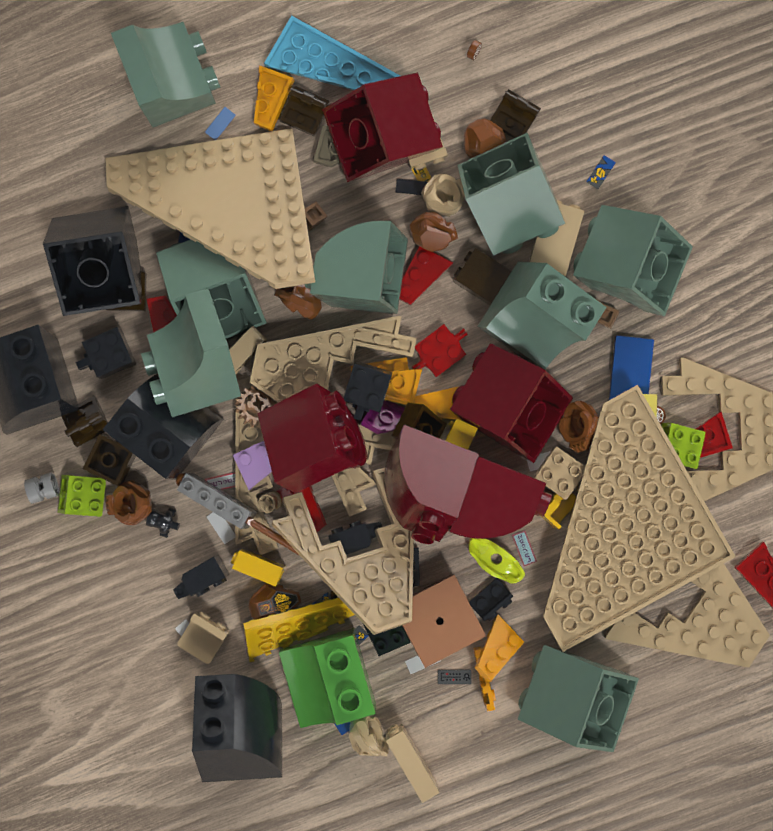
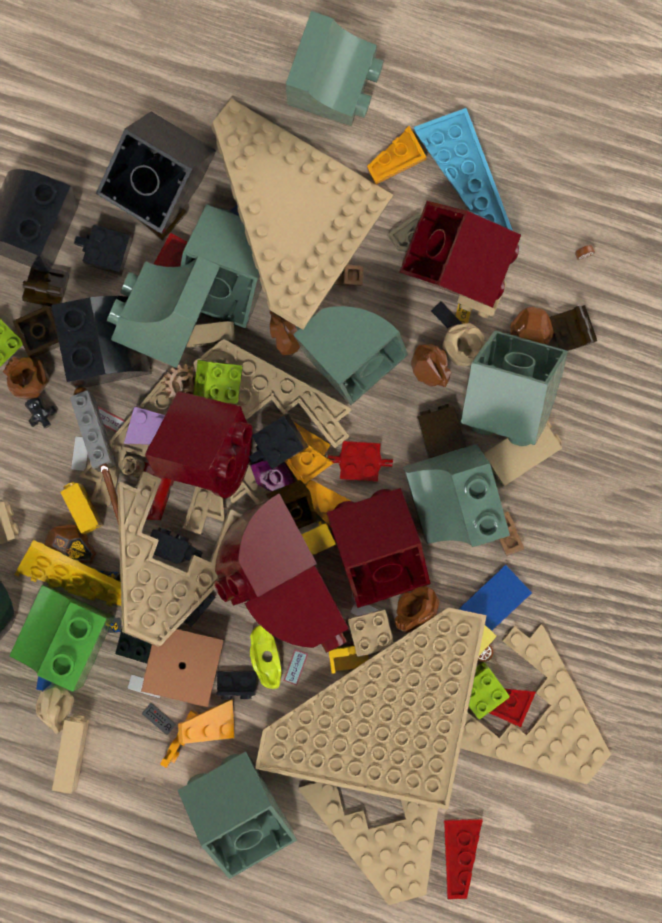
camera: 45 degrees right, 0 degrees up
(201, 577) = (31, 479): black hinge -> none
(220, 123) = (341, 144): medium blue sticker -> none
(280, 380) = (218, 381): none -> lime bracket
(304, 110) = (413, 189): dark brown plate -> none
(421, 274) = (396, 390): red wing -> none
(601, 172) = (603, 429): sticker -> none
(633, 258) = (567, 517): sand green brick -> none

